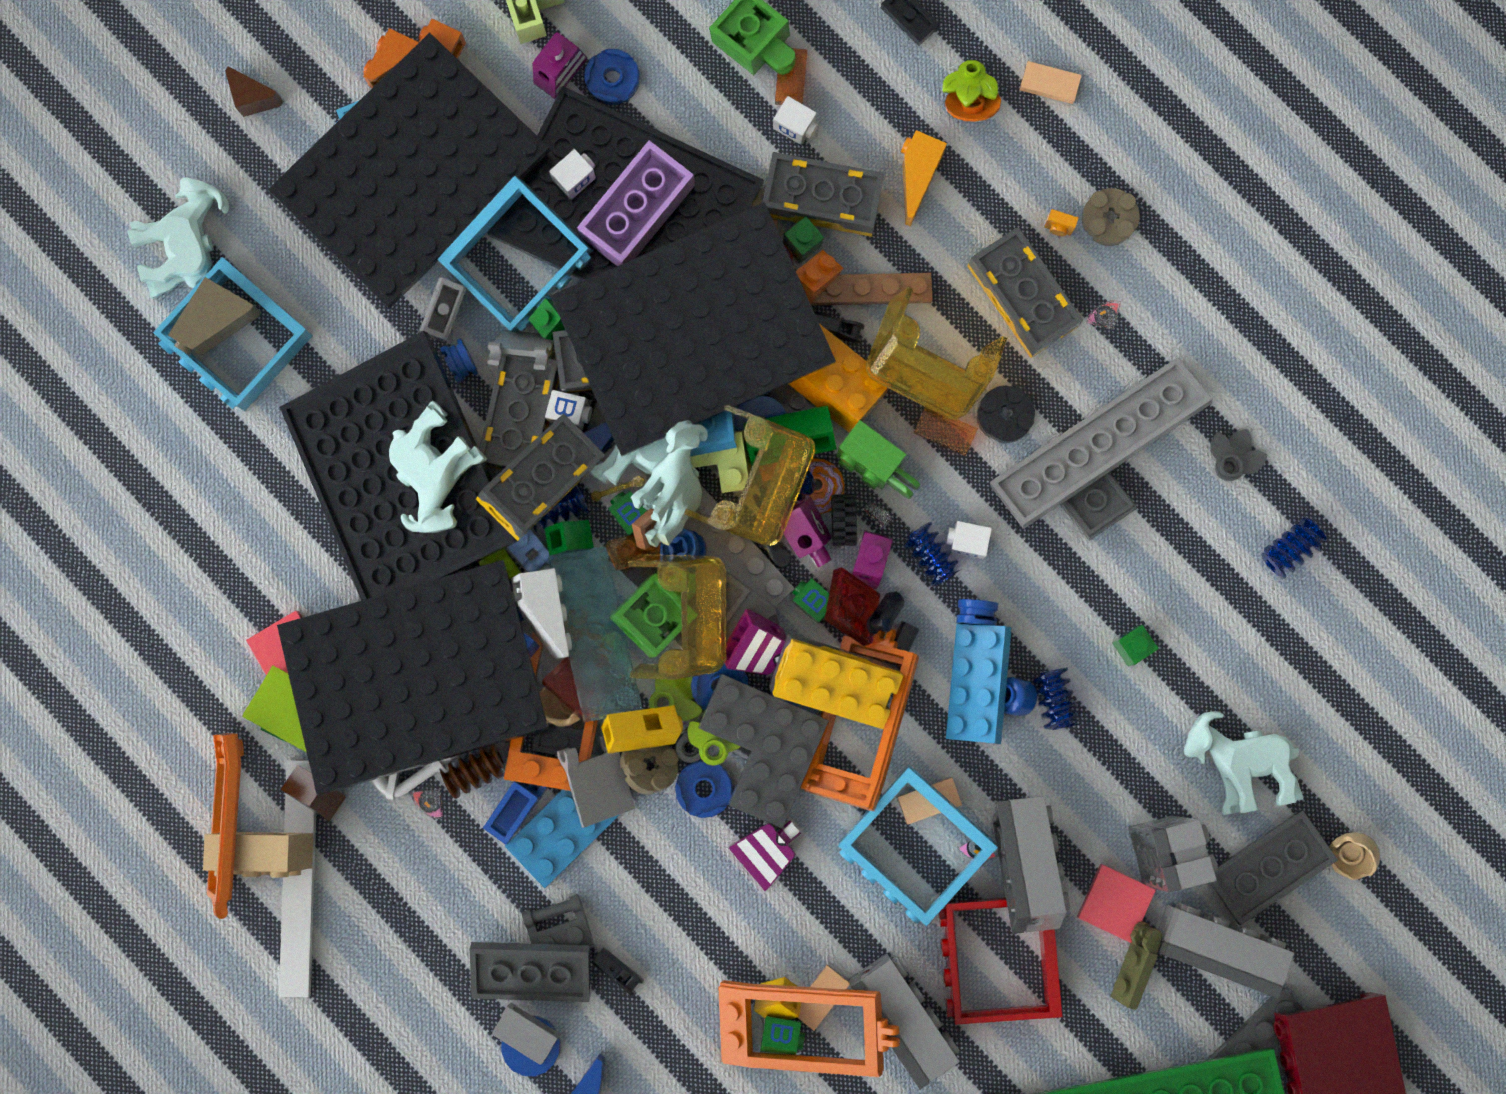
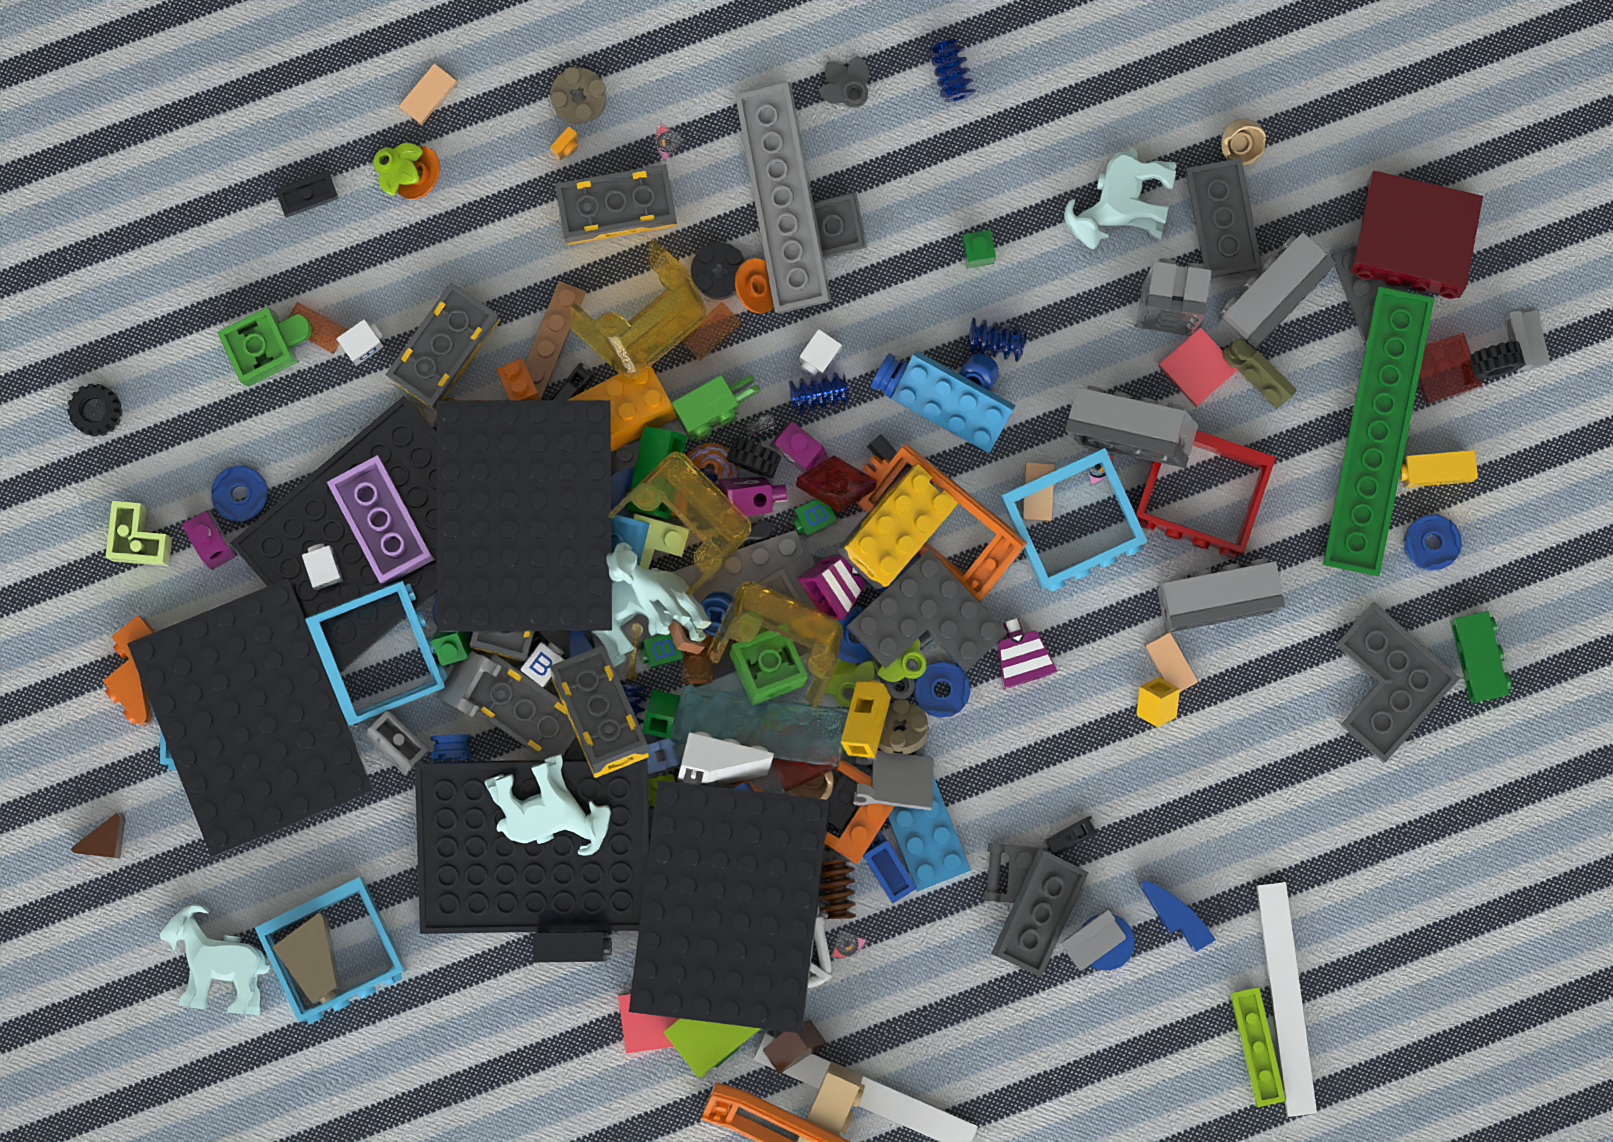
camera: 70 degrees left, 0 degrees up
(318, 547) = (571, 947): none -> black window
(737, 1028) = (1166, 747): orange animal -> none
(781, 1036) = (1191, 712): green brick -> none
(803, 239) = (477, 382): green brick -> none
(885, 613) = (854, 456): black bar -> none
(919, 166) = (456, 249): light orange slope -> none
(1017, 446) = (754, 286): none -> orange dish

